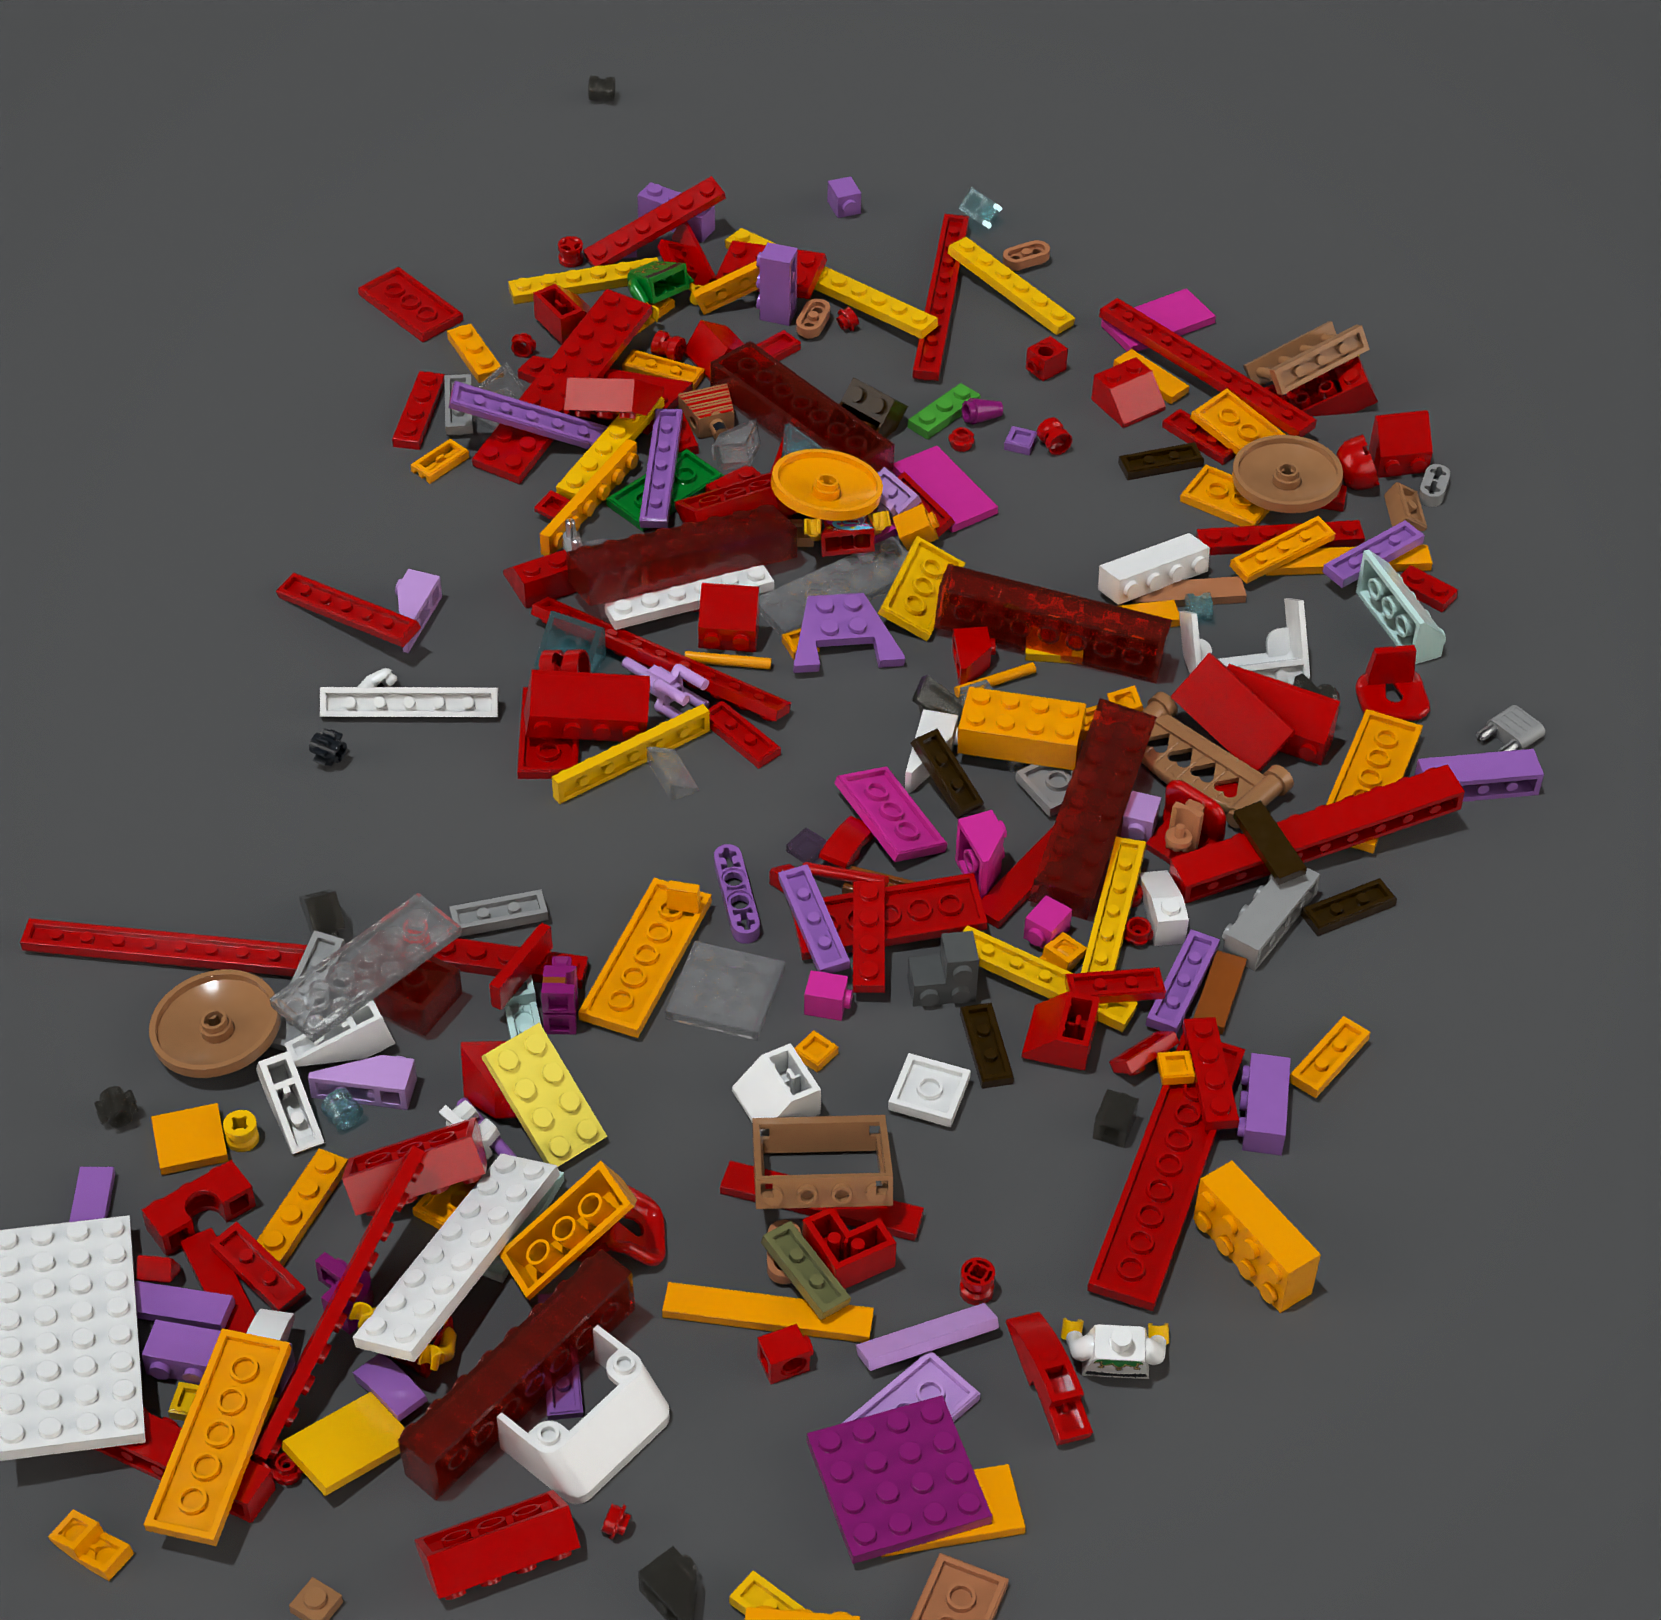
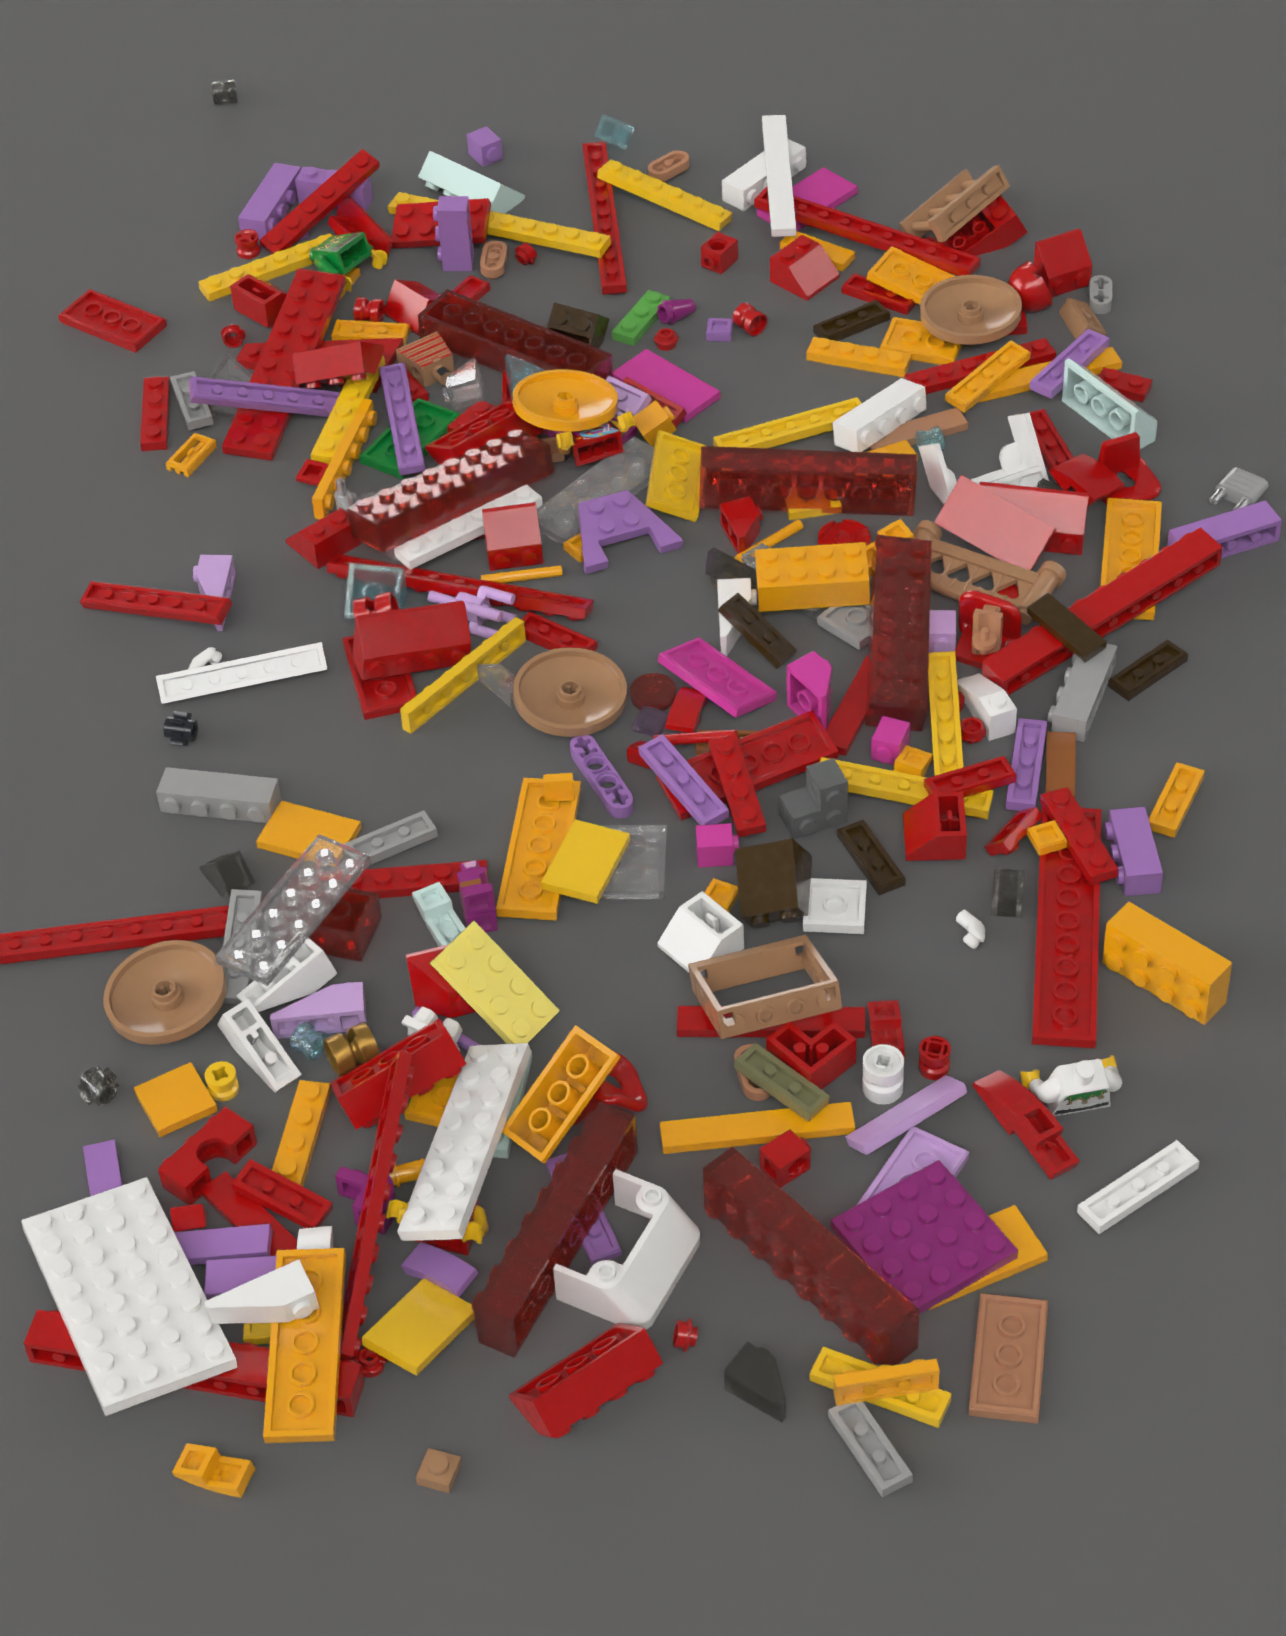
camera: 10 degrees left, 0 degrees up
(197, 1378) = (267, 1299): none -> white slope
(342, 826) = (218, 795): none -> light grey brick
(379, 1127) = (350, 1049): none -> pearl gold wheel
(387, 1273) = (406, 1172): none -> light orange pin
(411, 874) = (296, 827): none -> light orange tile
(473, 351) = (188, 351): light orange plate -> none
(521, 966) = (432, 879): red tile -> none
(608, 210) = (270, 199): none -> medium lavender brick
(685, 982) = (586, 861): none -> yellow tile
(727, 288) = (408, 246): light orange plate -> none
(731, 796) = (570, 692): none -> medium nougat dish
(770, 1473) = (811, 1259): none -> clear red brick
(813, 233) = (461, 181): none -> light aqua slope
(820, 814) = (653, 691): none -> clear red piece
(870, 1050) = (773, 882): none -> dark brown slope
(915, 1286) = (883, 1074): none -> white wheel
(938, 1237) = (886, 1024): none -> red slope
(1050, 561) = (787, 428): none -> yellow plate
(1068, 1151) = (975, 928): none -> white arm
(1075, 688) = (843, 532): none -> red tile
(1123, 281) = (749, 180): none -> white brick
(1132, 289) = (778, 176): none -> white tile
(1146, 1476) = (1138, 1187): none -> white plate
(1156, 500) = (858, 357): none -> light orange plate
(1326, 640) = (1051, 444): none -> red tile
(1348, 682) = (1087, 476): none -> red slope

